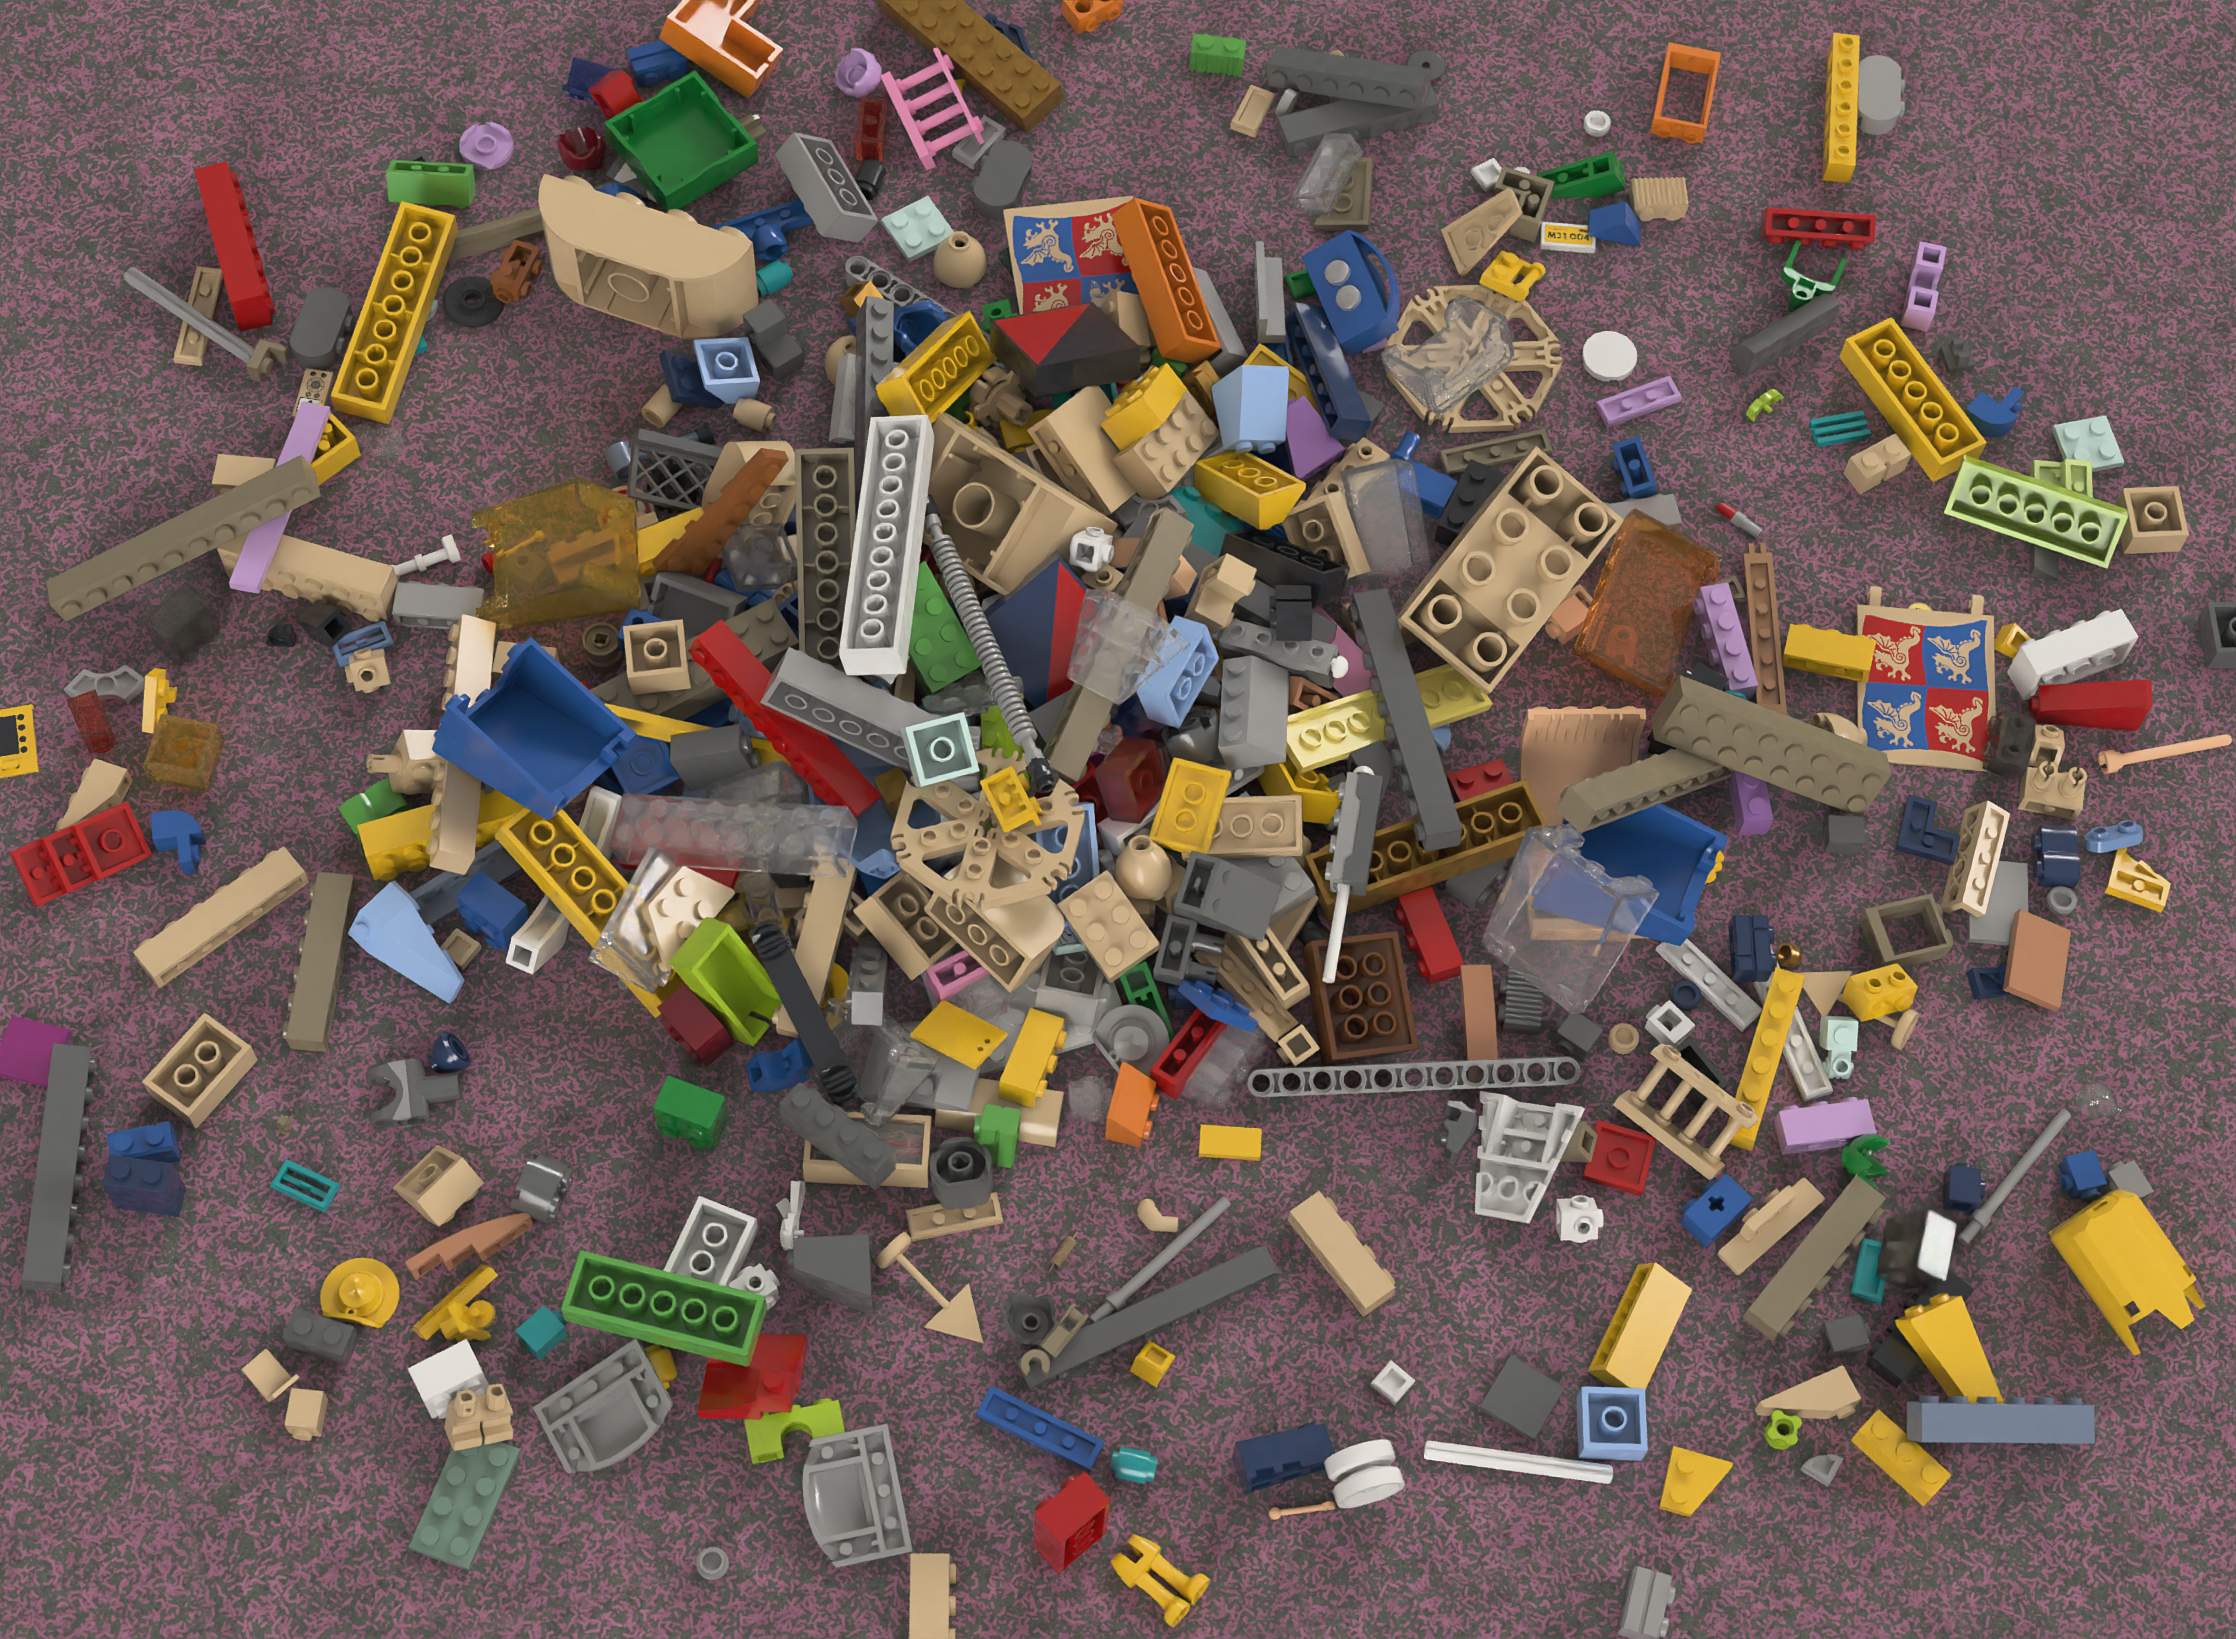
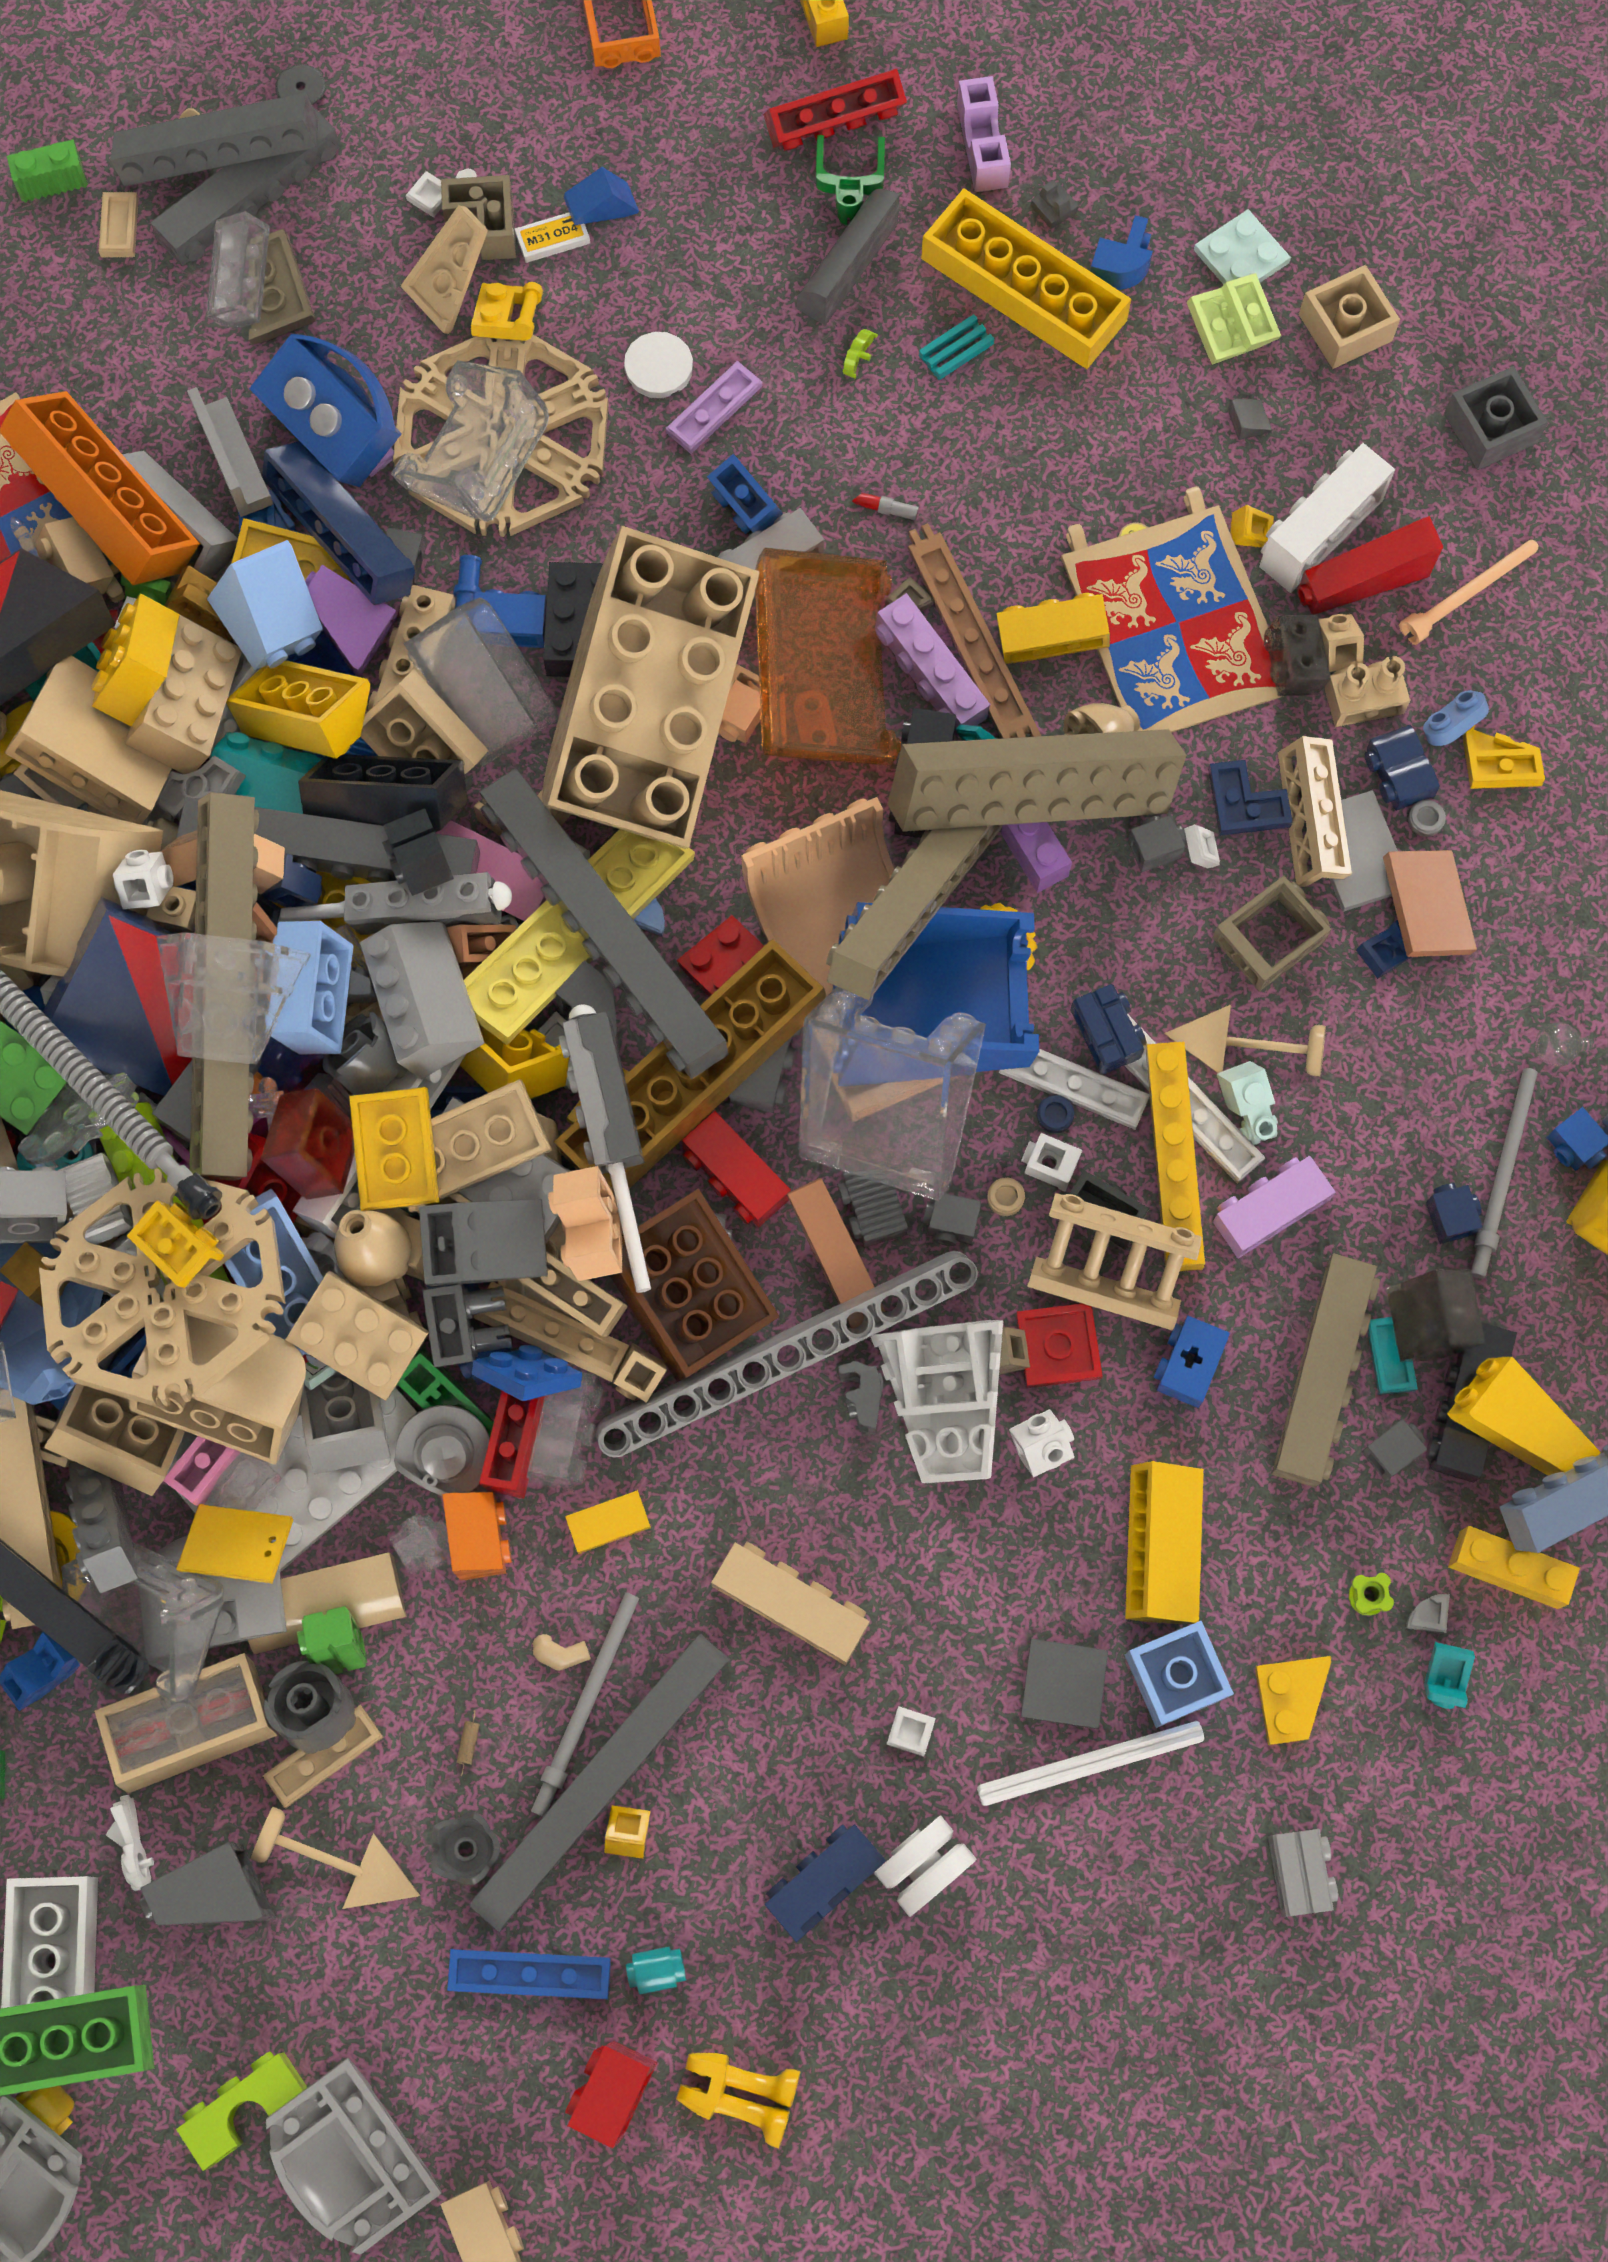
camera: 20 degrees left, 10 degrees up
(759, 1282) = (109, 1963): white brick -> none
(765, 1386) = (185, 2076): red slope -> none
(838, 1135) = (142, 1735): dark grey brick -> none
(939, 749) = (61, 1217): light aqua brick -> none
(1032, 1058) = (335, 1529): yellow brick -> none
(1053, 1342) = (502, 1872): dark tan piece -> none
(1217, 591) = (317, 863): tan brick -> none
(1275, 1513) = (841, 1949): light nougat hinge -> none
(1287, 102) = (154, 198): light grey piece -> none
(1300, 284) = (261, 422): green tile -> none
(1308, 915) = (589, 1222): none -> light nougat brick
(1494, 452) = (575, 538): dark tan tile -> none
(1588, 177) = (545, 153): green slope -> none
(1597, 123) = (529, 80): white tile -> none
(1658, 198) = (637, 145): tan brick -> none
(1770, 1224) = (1260, 1351): tan bracket -> none
(1791, 951) = (1148, 1009): pearl gold hinge -> none
(1817, 1398) = (1397, 1533): tan slope -> none
(1818, 1514) = (1448, 1675): none -> teal bracket
(1859, 1159) = (1329, 1229): green piece -> none
(1868, 467) = (1008, 381): tan piece -> none
(1878, 851) = (1202, 846): none -> white tile
(1879, 992) = (1272, 1020): yellow brick -> none
(2035, 511) = (1218, 360): lime brick -> none

